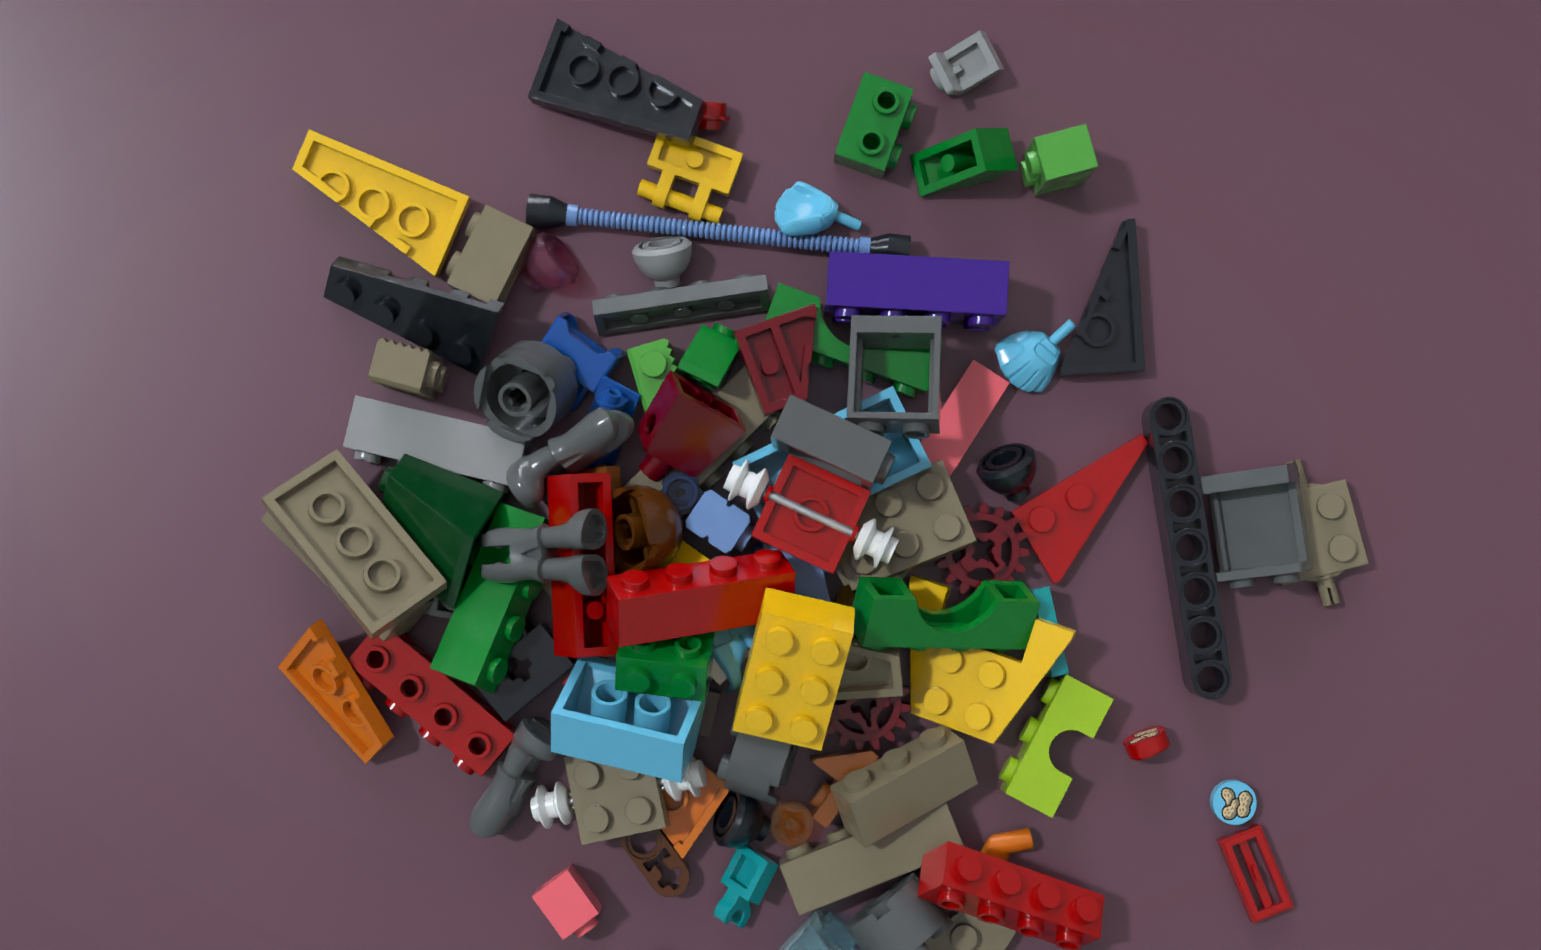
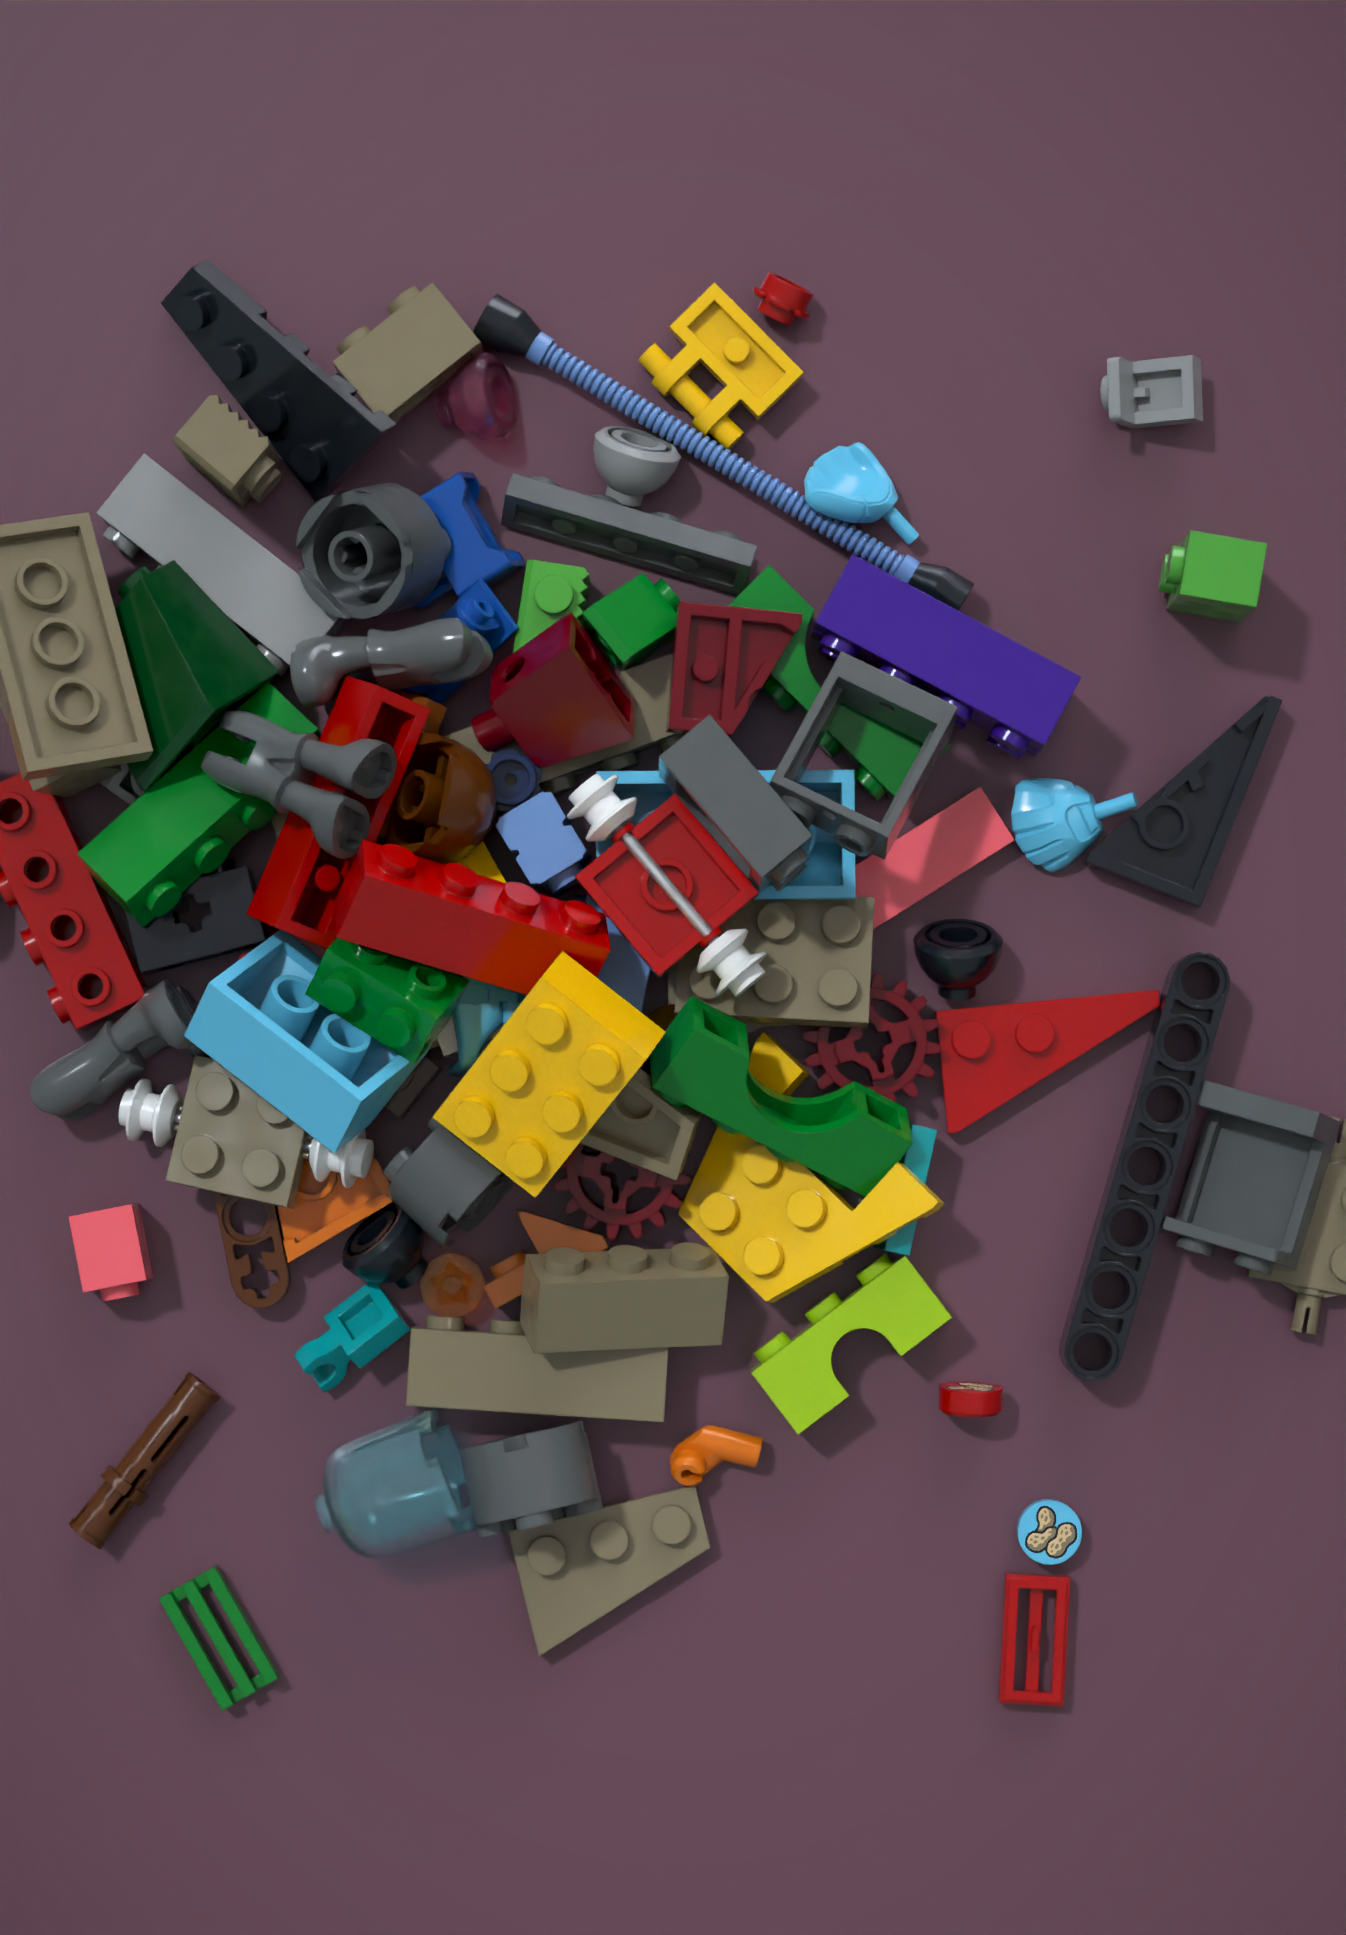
camera: 25 degrees right, 0 degrees up
(393, 202) = (311, 220): yellow wing -> none
(597, 84) = (660, 196): black wing -> none
(874, 125) = (995, 416): green brick -> none
(964, 161) = (1092, 518): green slope -> none
(1011, 896) = (695, 1508): red brick -> none

